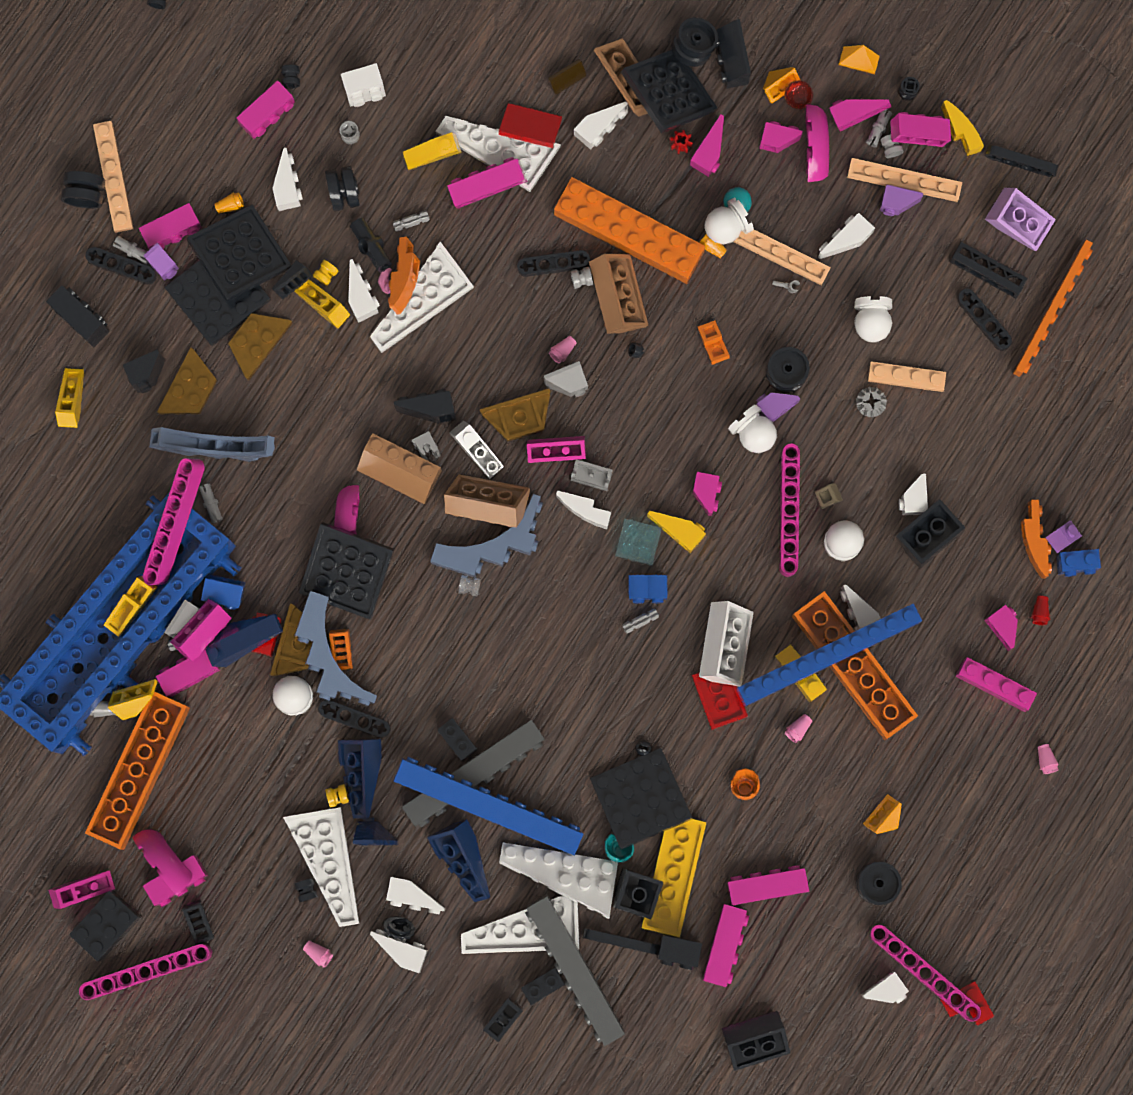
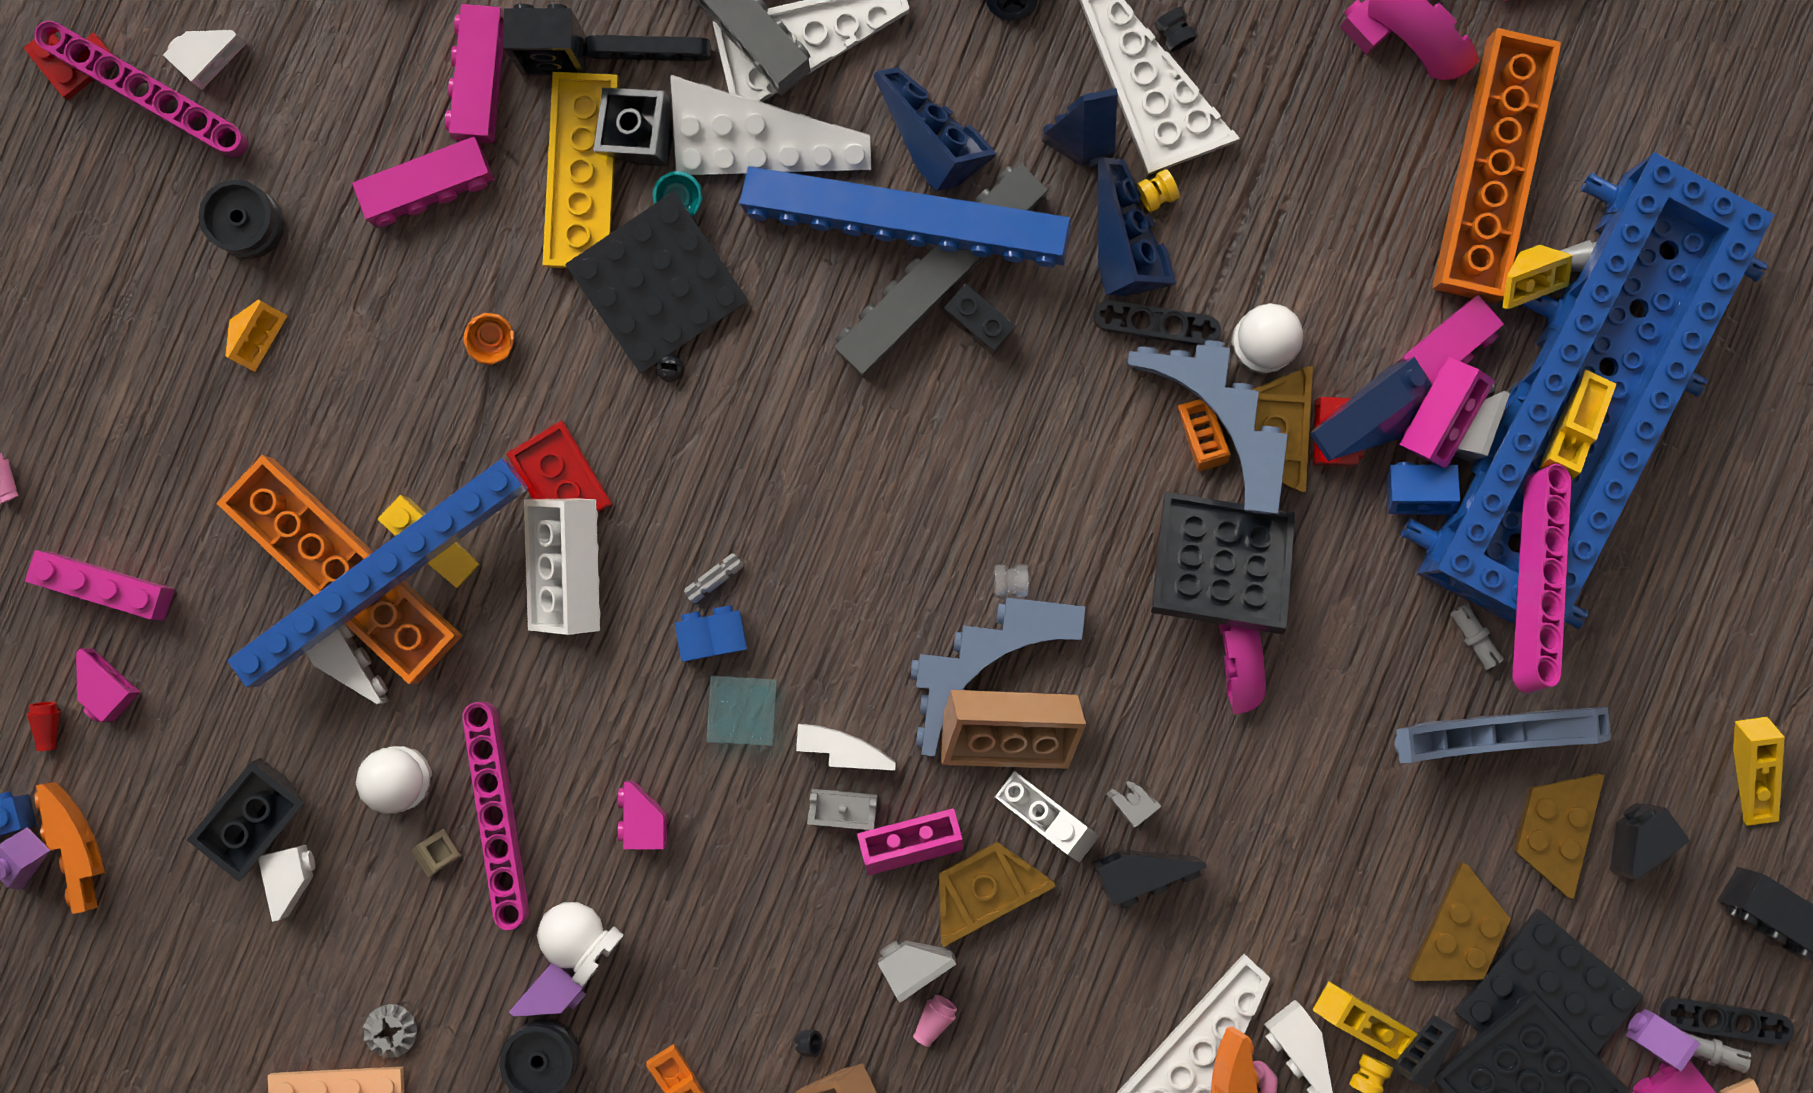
camera: 170 degrees right, 5 degrees up
(398, 468) = (1172, 756): medium nougat slope -> none
(409, 893) = (1005, 56): white slope -> none
(681, 530) = (669, 742): yellow slope -> none
(798, 728) = (418, 449): bright pink cone -> none

